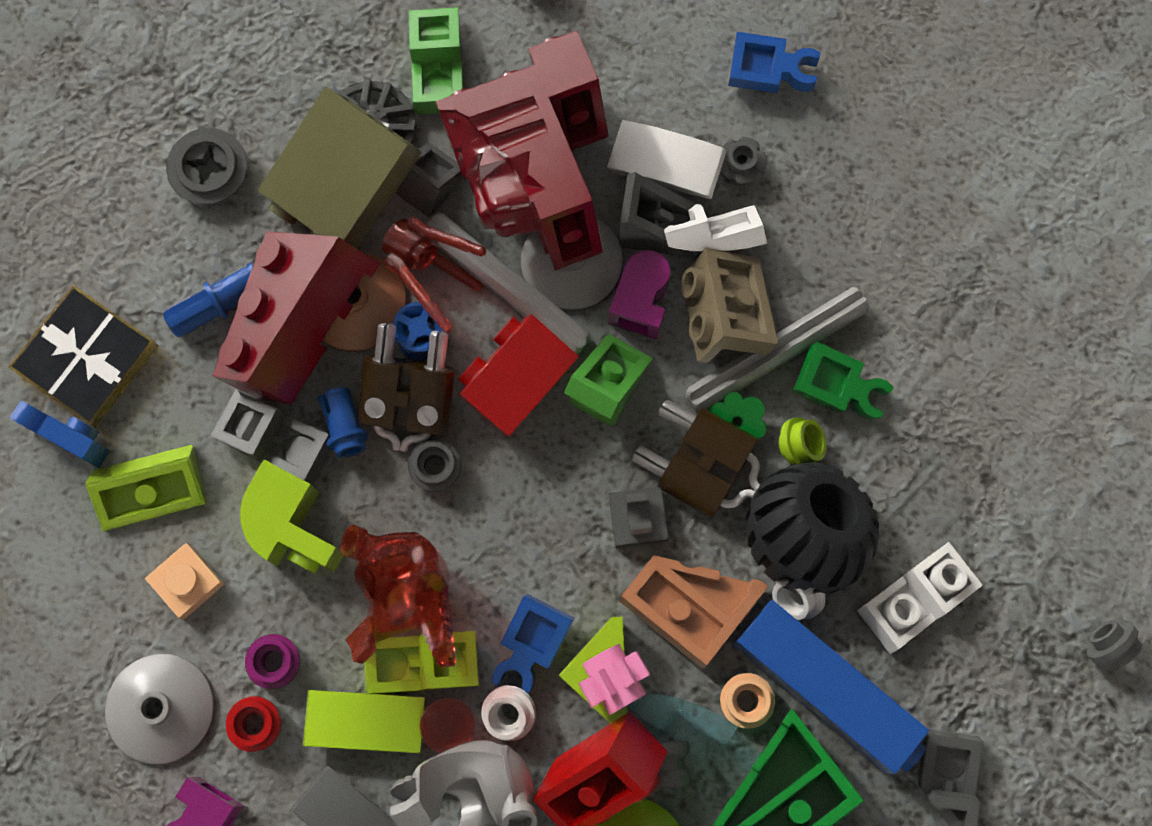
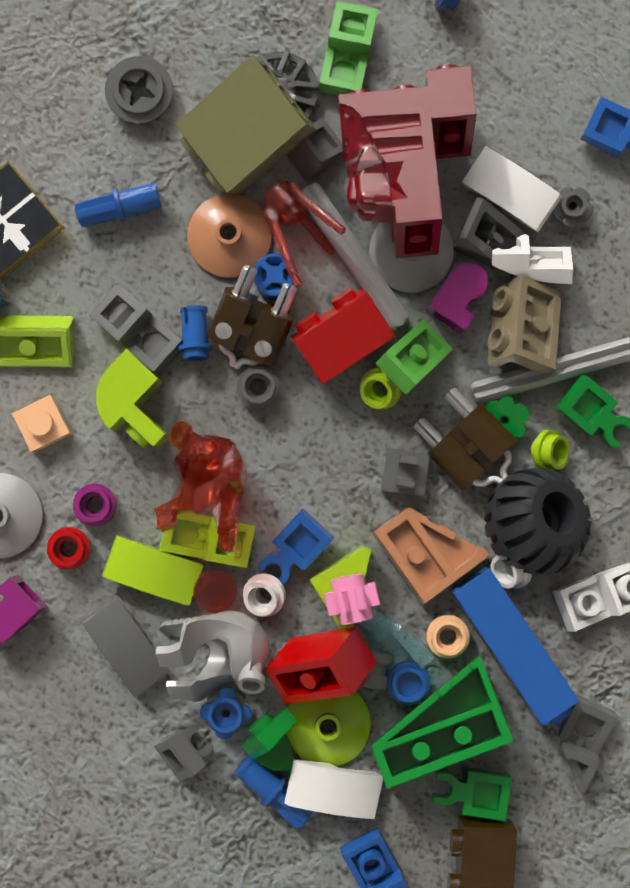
camera: 10 degrees right, 10 degrees up
(286, 312) = (174, 233): dark red wedge -> none
(571, 435) = (373, 395): none -> lime plate
(715, 772) = (408, 683): none -> blue plate

